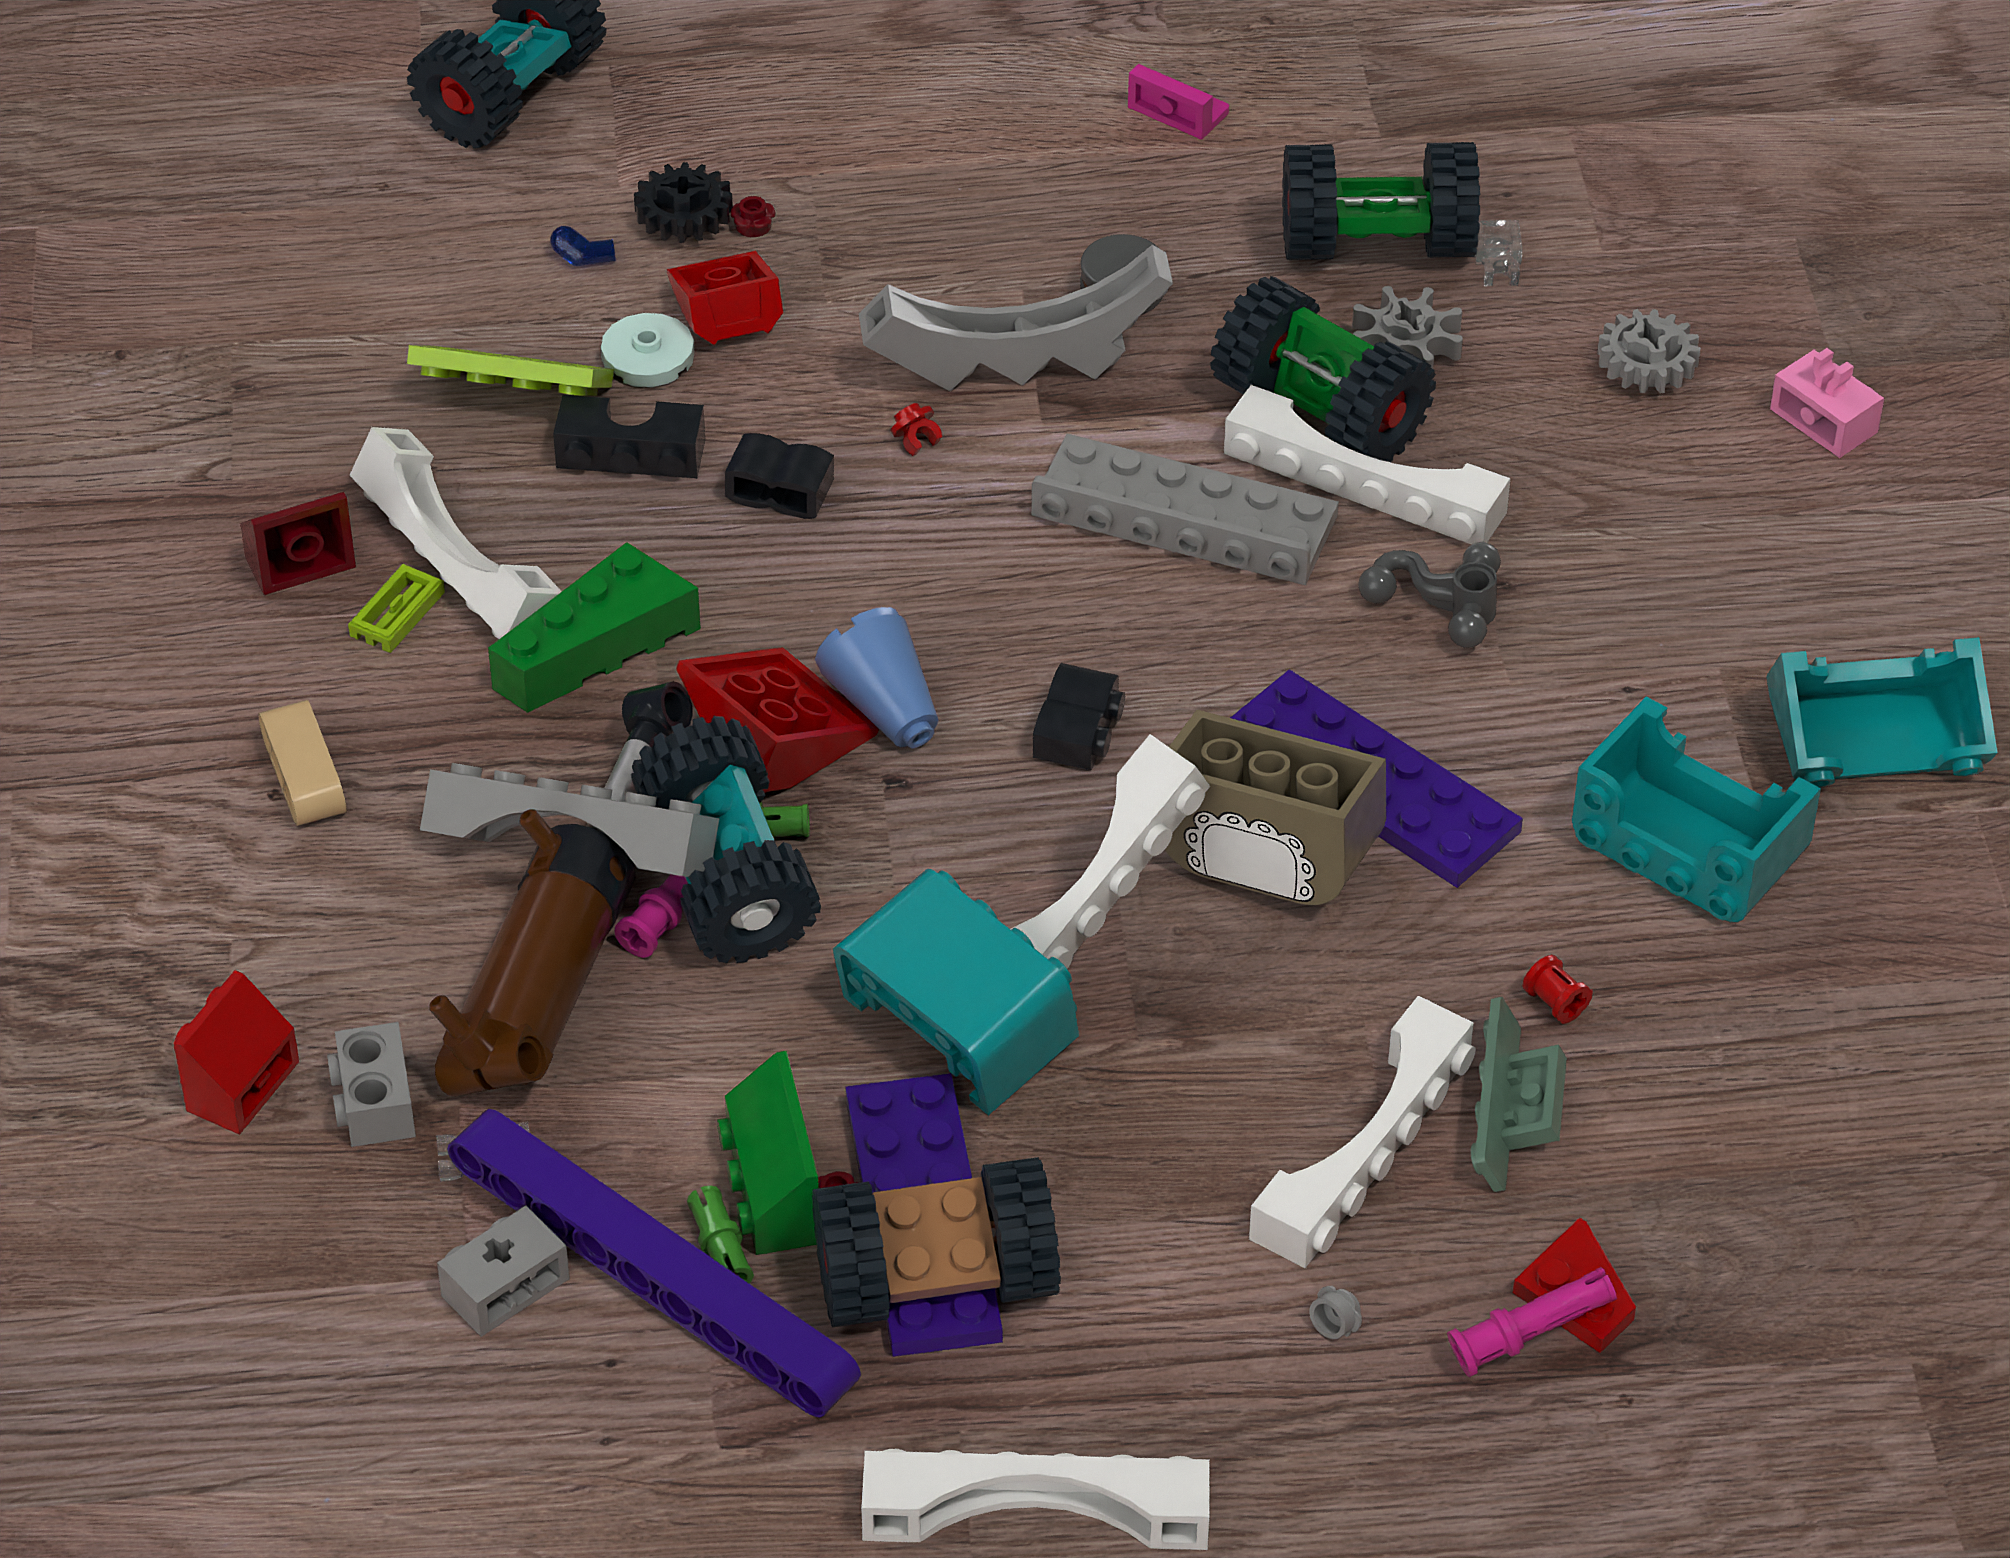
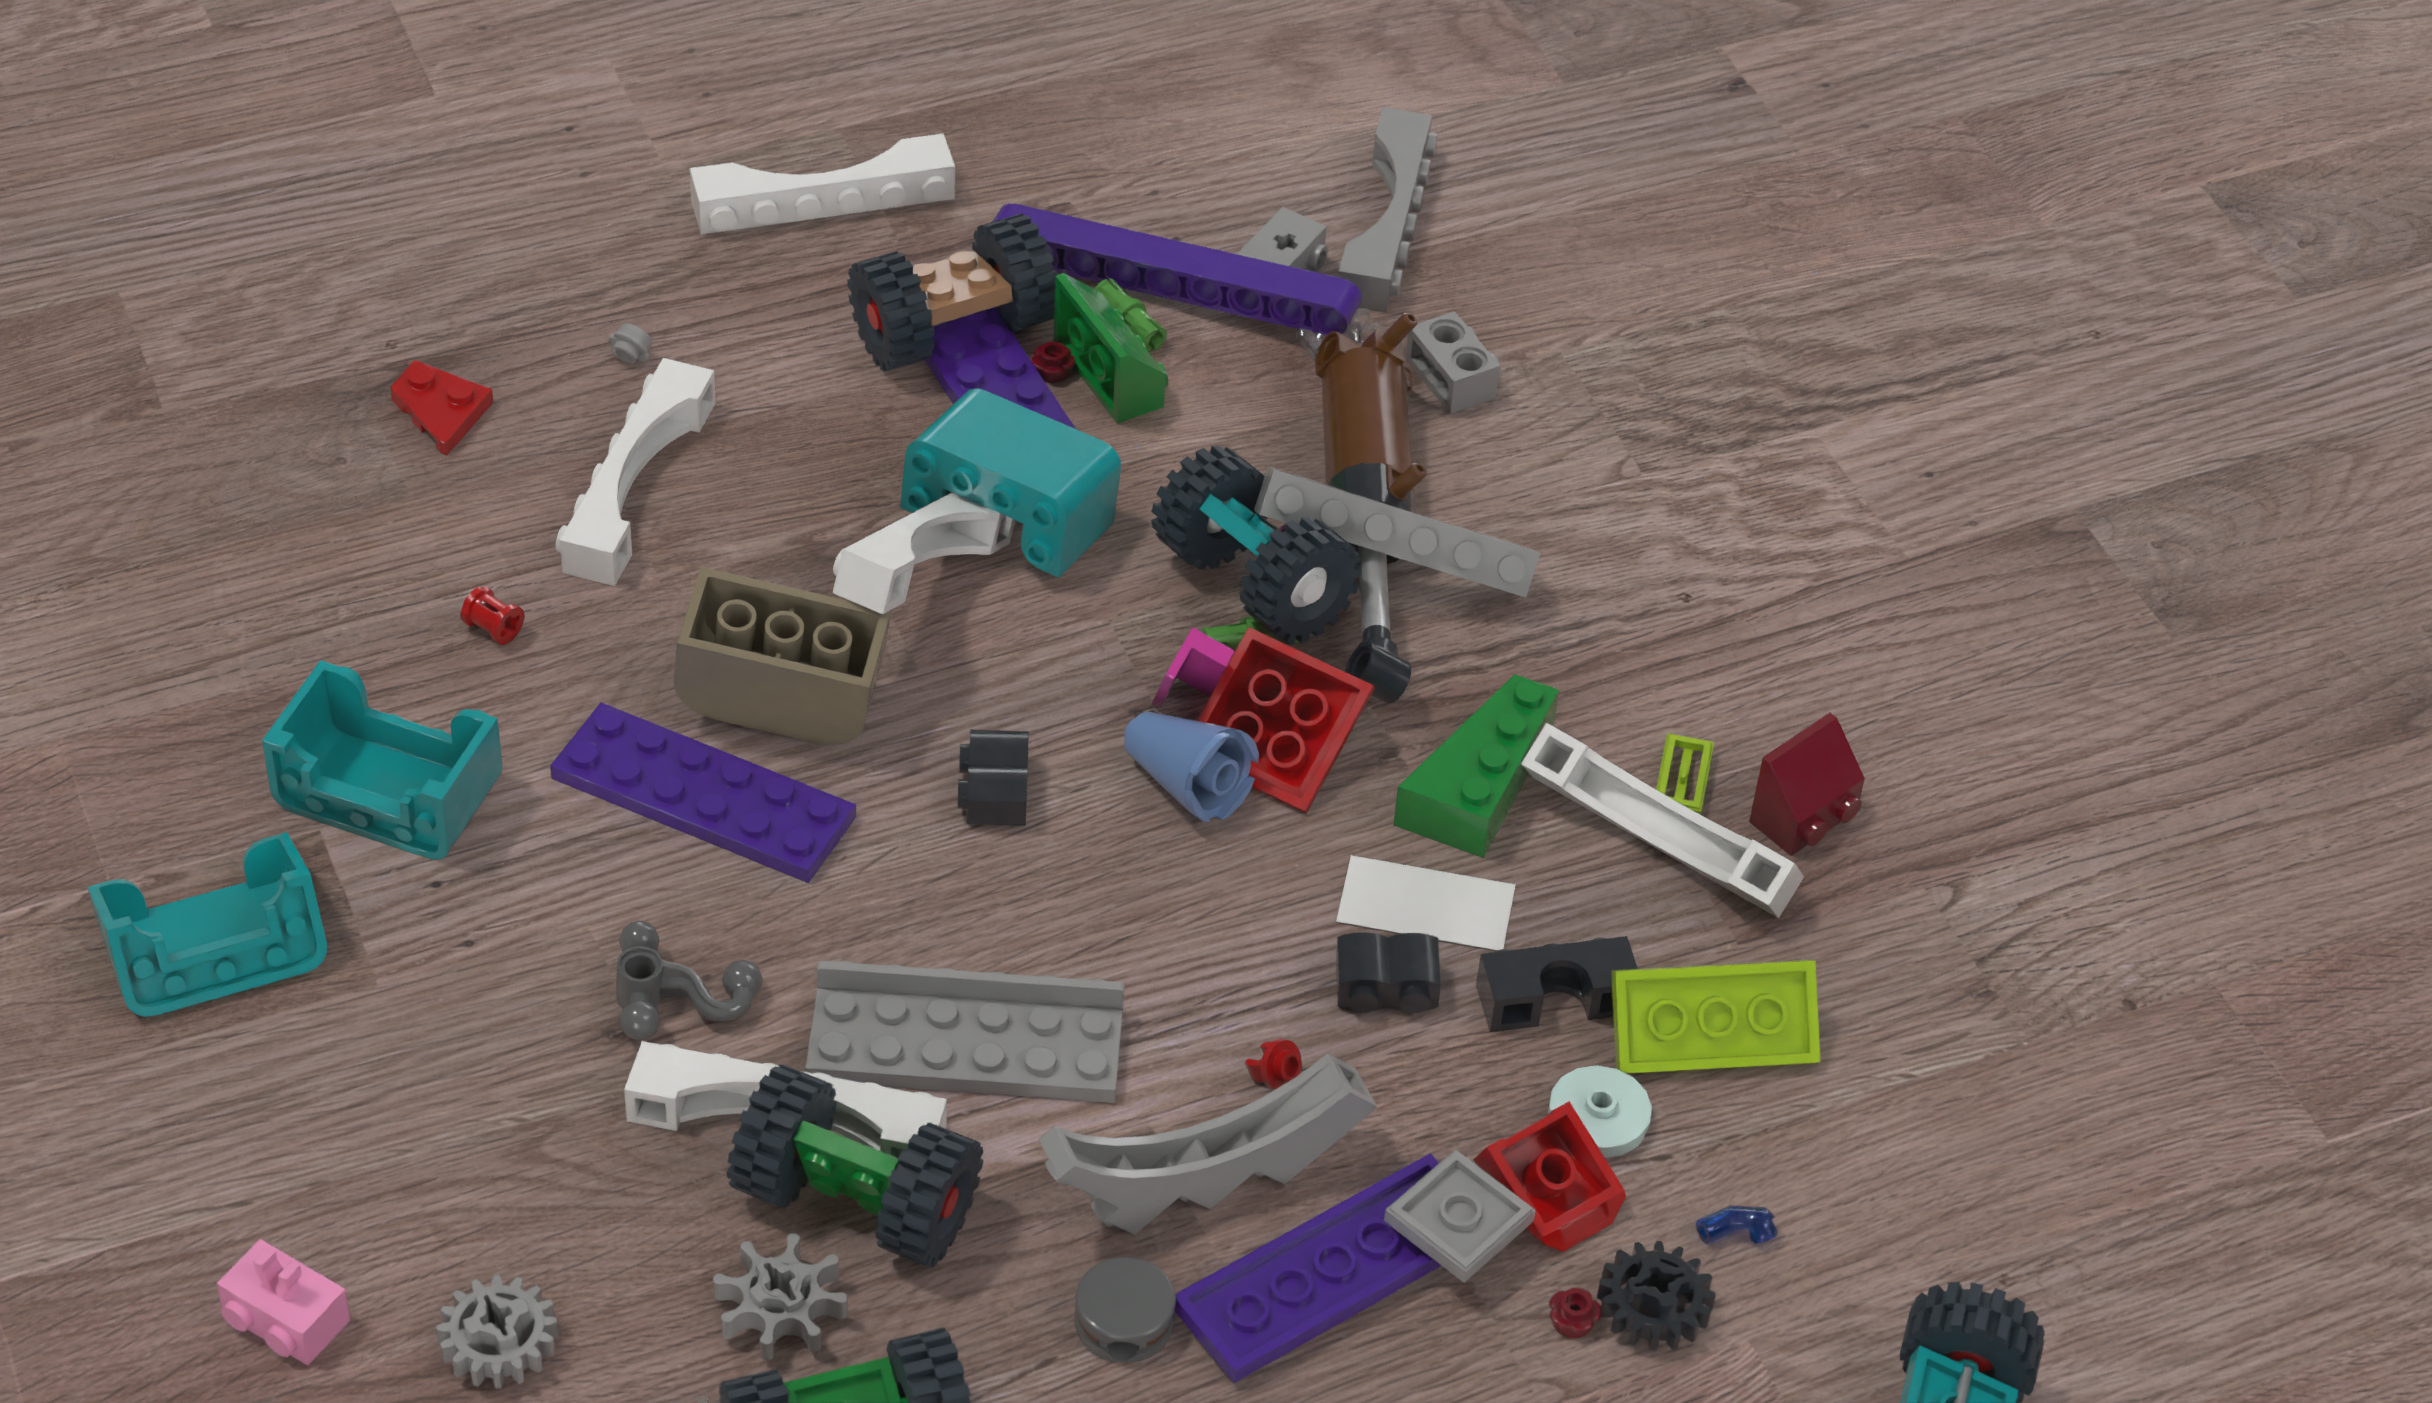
camera: 160 degrees right, 0 degrees up
(234, 1054) = (1568, 342): red slope -> none
(302, 763) = (1672, 602): tan beam -> none
(396, 1238) = (1399, 157): none -> light grey arch
(710, 552) = (1426, 902): none -> white sticker
(821, 257) = (1459, 1215): none -> light grey plate
(847, 747) = (1197, 664): none -> dark pink panel
(946, 268) = (1306, 1279): none -> dark purple plate
(1509, 1330) = (489, 340): dark pink pin -> none
(1518, 1096) = (512, 520): sand green bracket -> none

